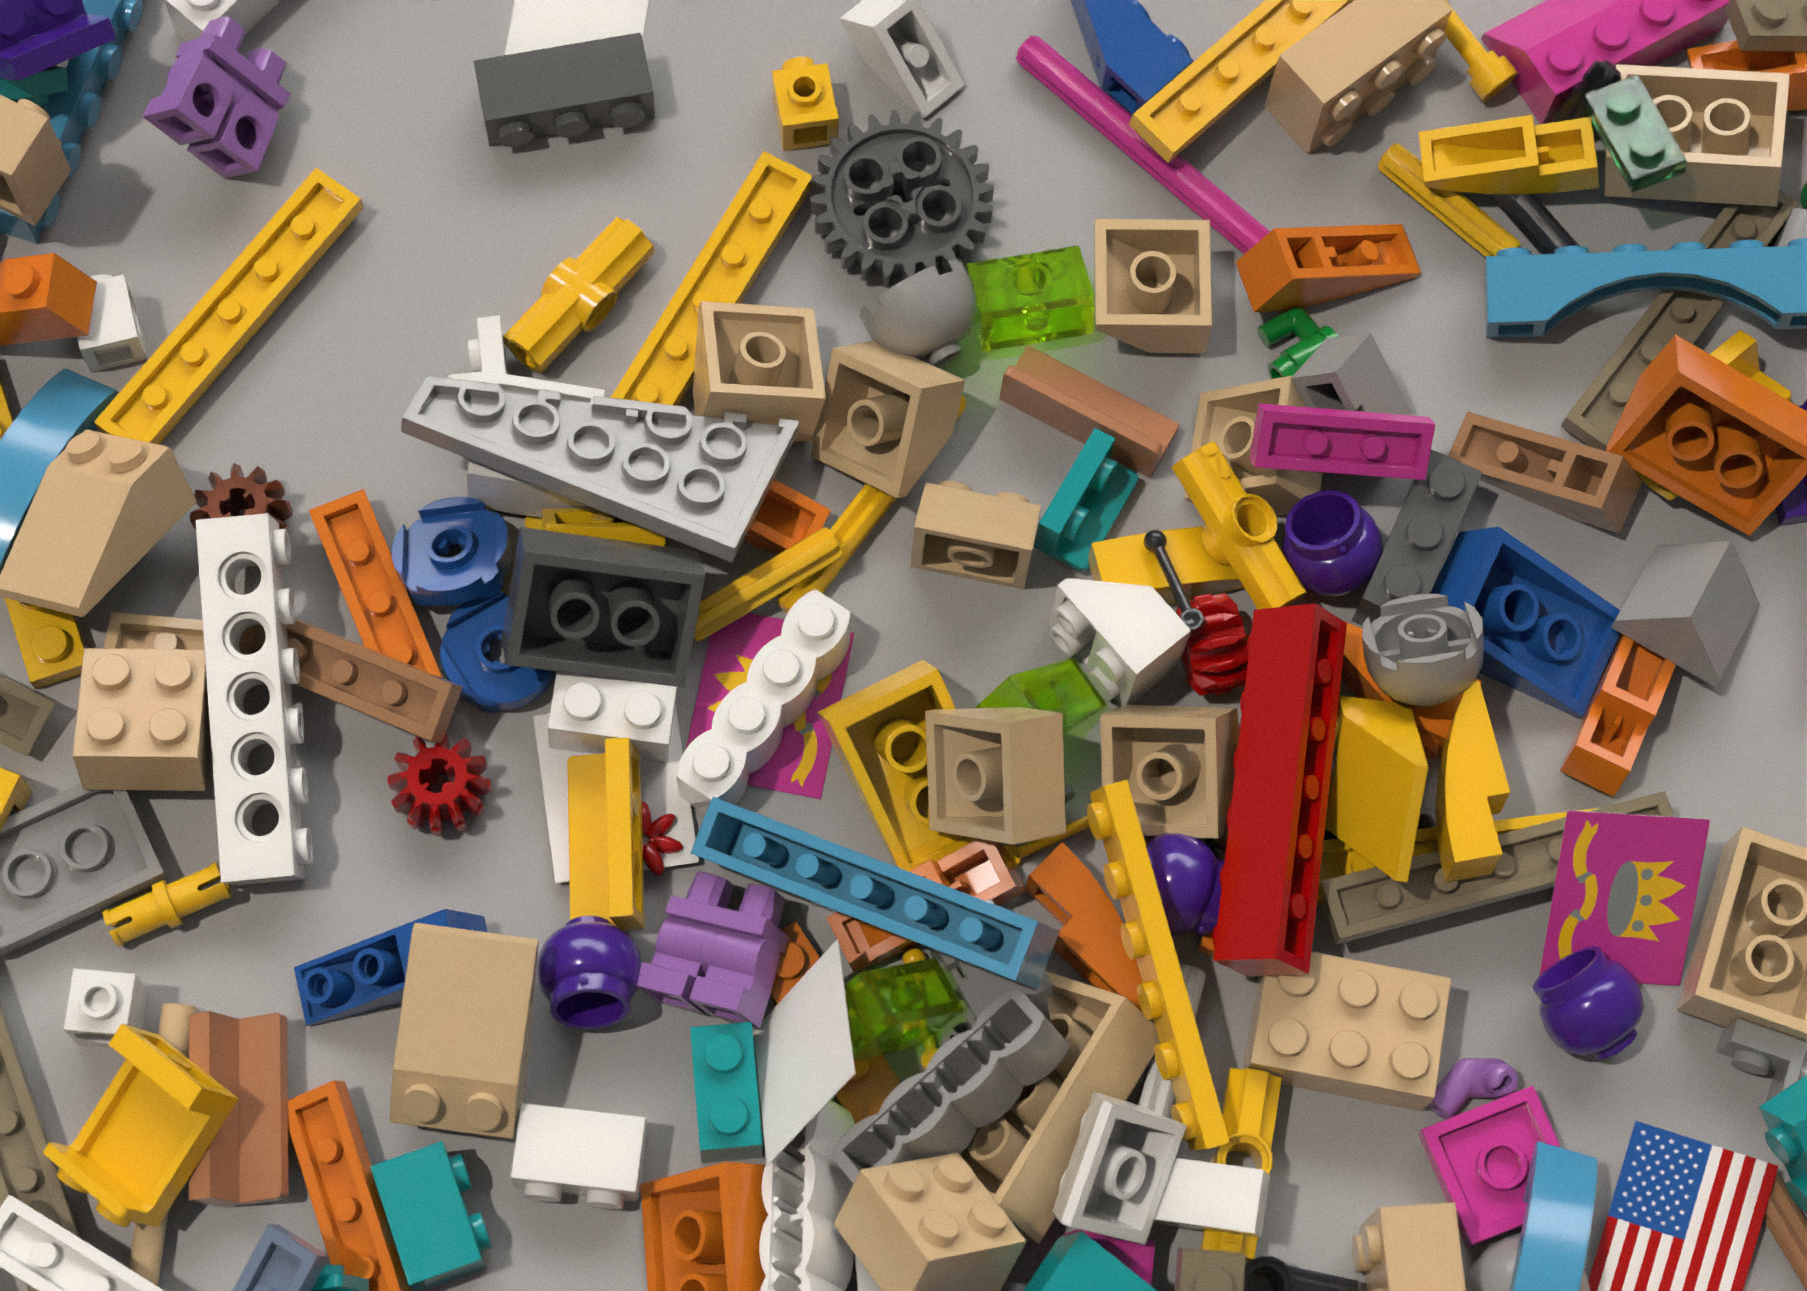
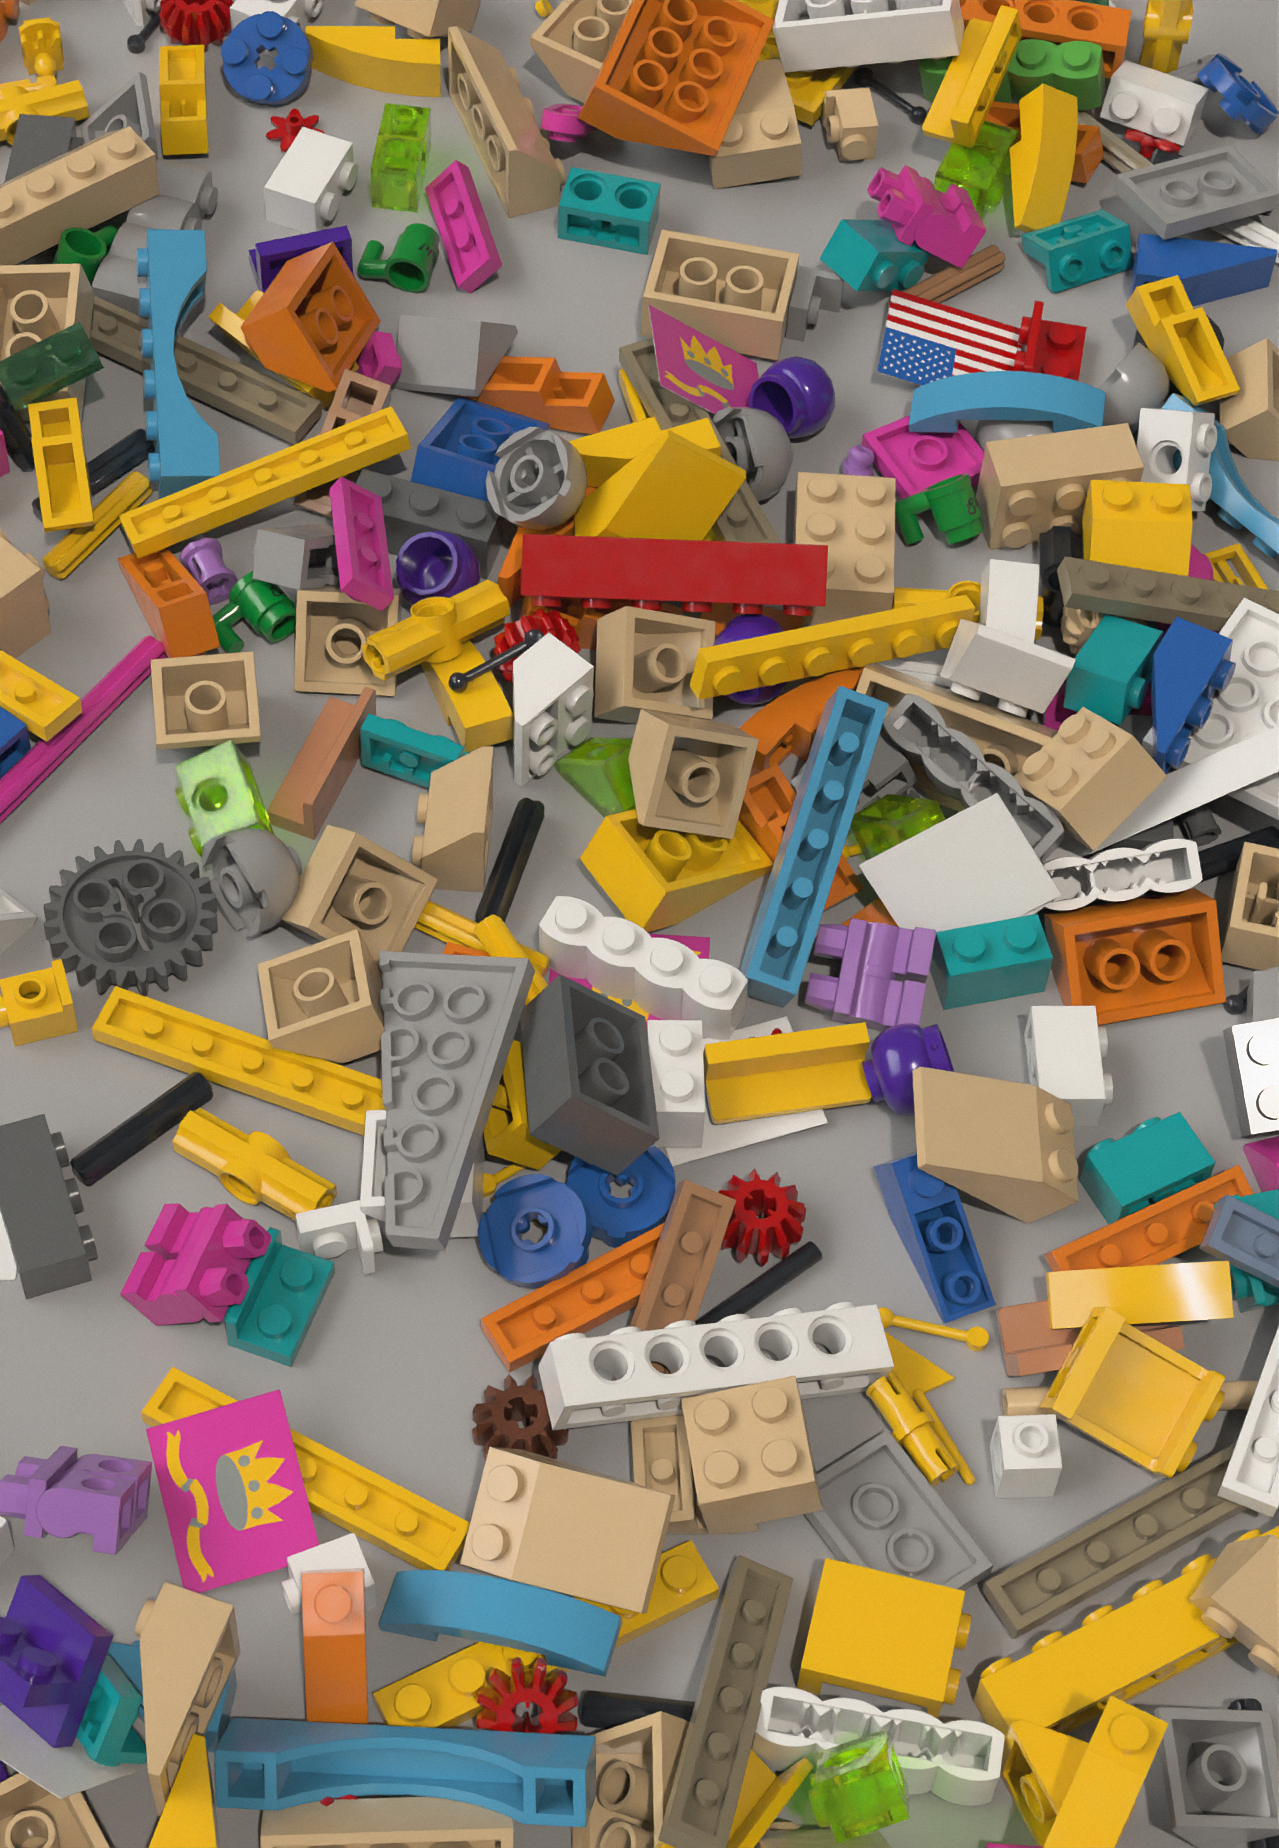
camera: 95 degrees left, 15 degrees down
(218, 244) = (232, 1491): none -> dark pink sticker
(238, 919) = (919, 1378): none -> yellow piece
(253, 1160) = (1141, 1293): none -> yellow slope
(270, 996) = (975, 1338): none -> yellow hinge
(359, 771) = (765, 1284): none -> black bar
(427, 304) = (279, 1303): none -> teal bracket
(455, 226) = (194, 1264): none -> dark pink hips
(647, 197) = (141, 1128): none -> black axle
(934, 592) = (511, 860): none -> black axle
(1368, 310) = (209, 568): none -> medium lavender bush
(1406, 1171) = (952, 507): none -> green piece
(1476, 372) = (265, 482): none -> yellow plate
(1500, 940) = (758, 446): none -> light grey cylinder
(1670, 524) = (380, 359): none -> dark pink plate

